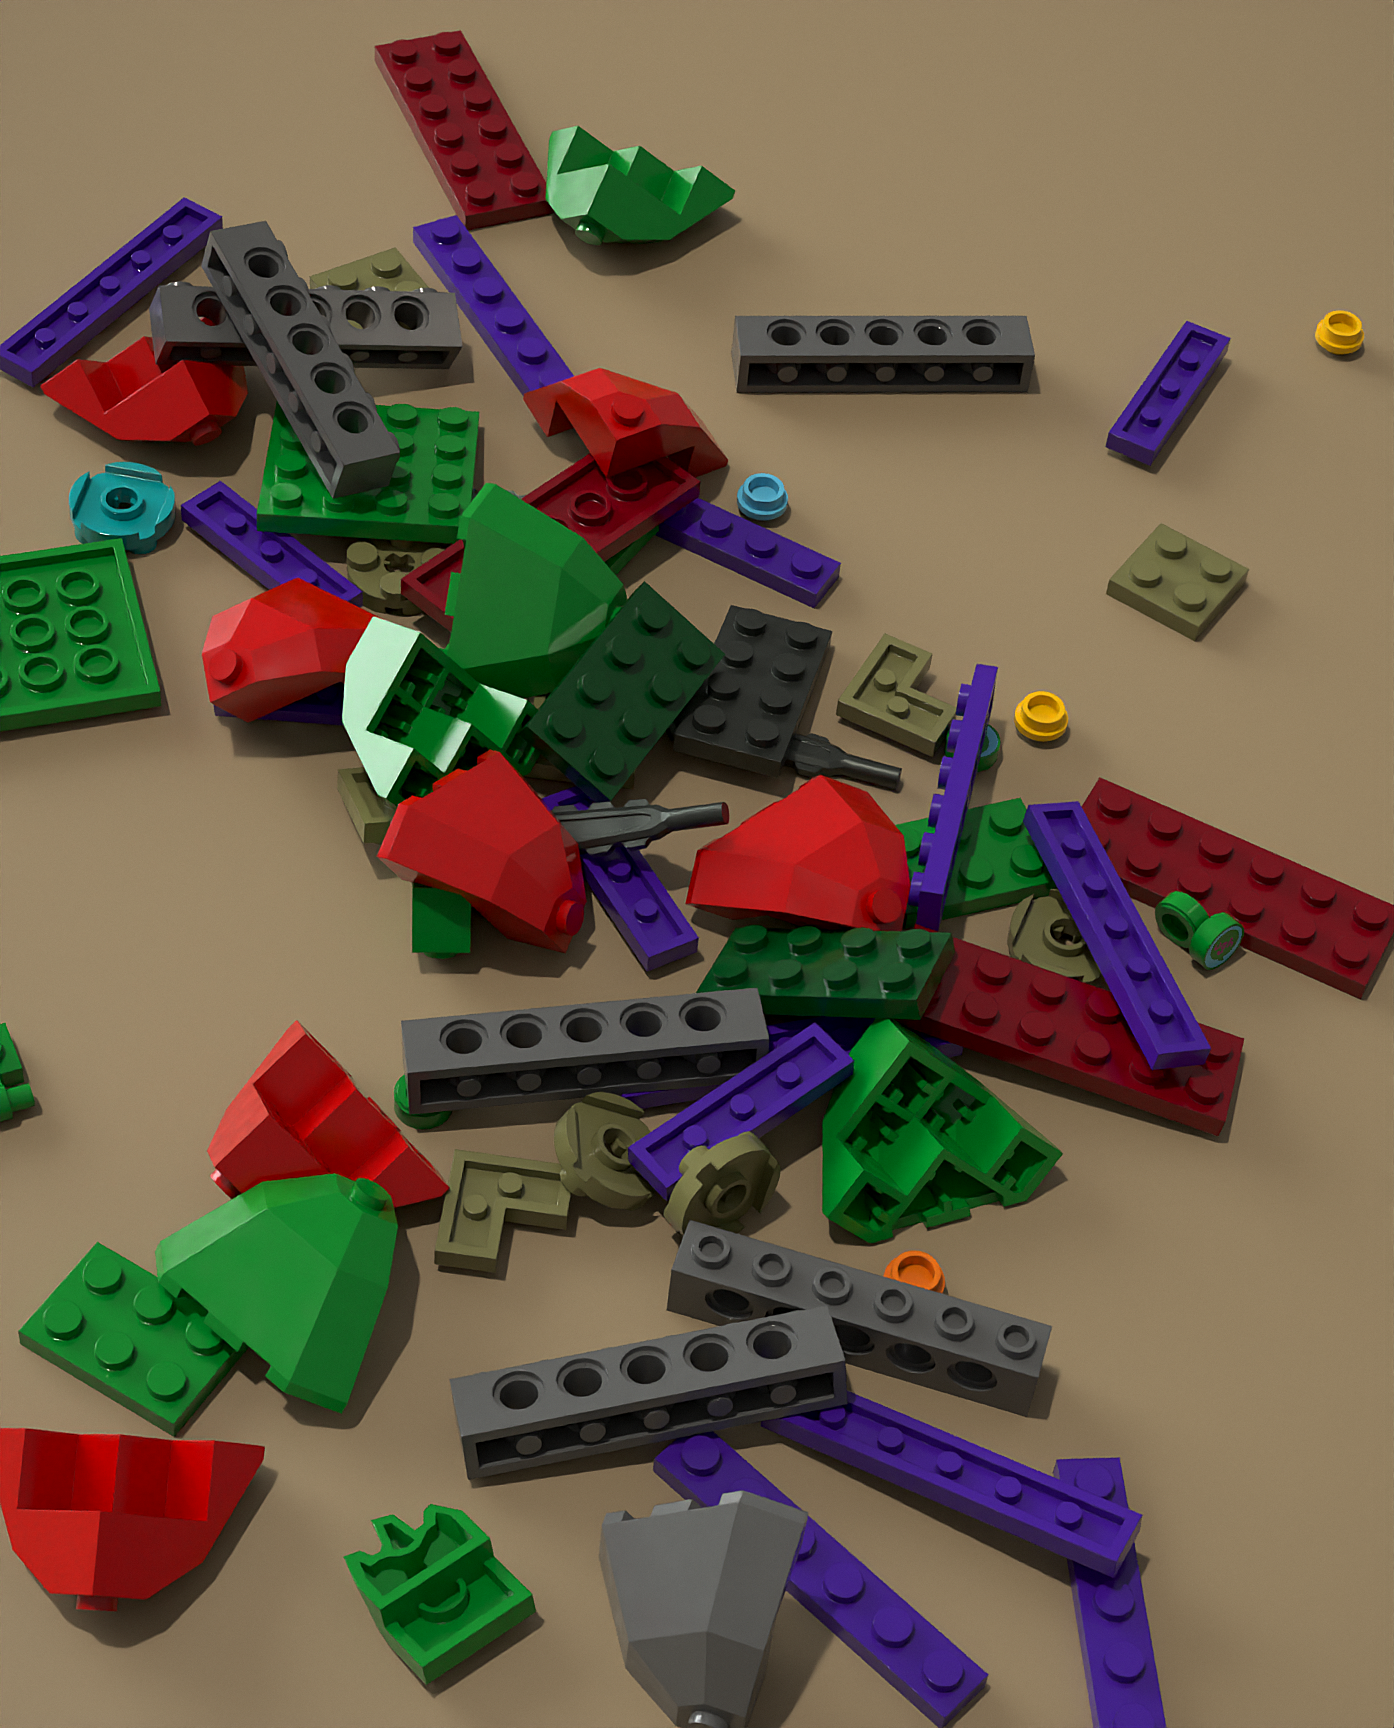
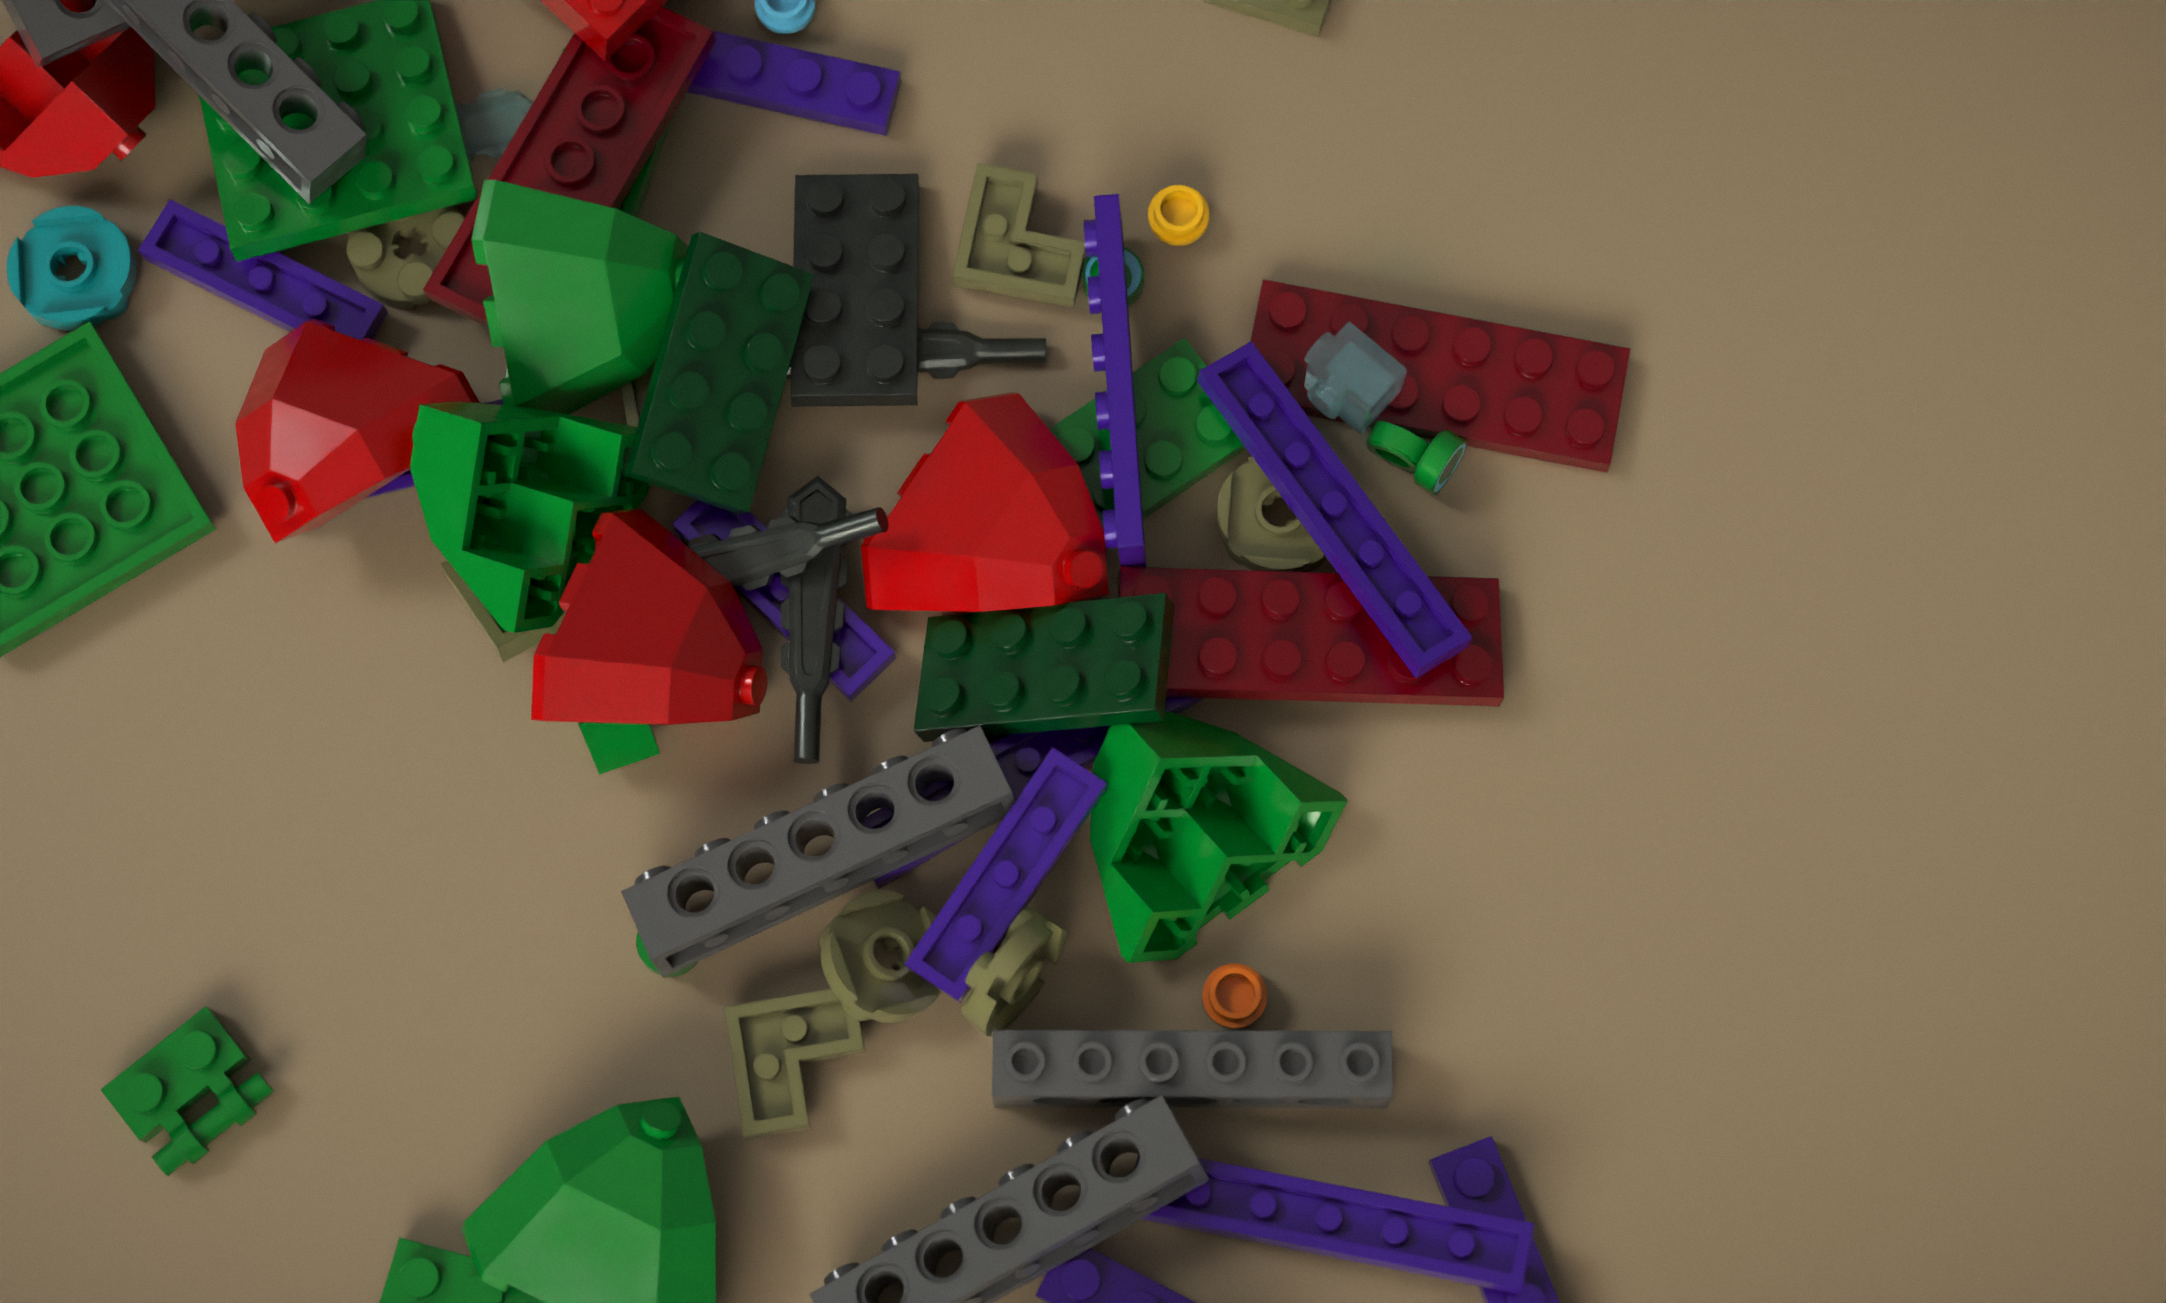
camera: 10 degrees left, 25 degrees up
(311, 1120) = (576, 1038): red brick -> none
(634, 894) = (813, 617): none -> pearl dark grey sword
(1159, 848) = (1352, 377): none -> clear light blue brick

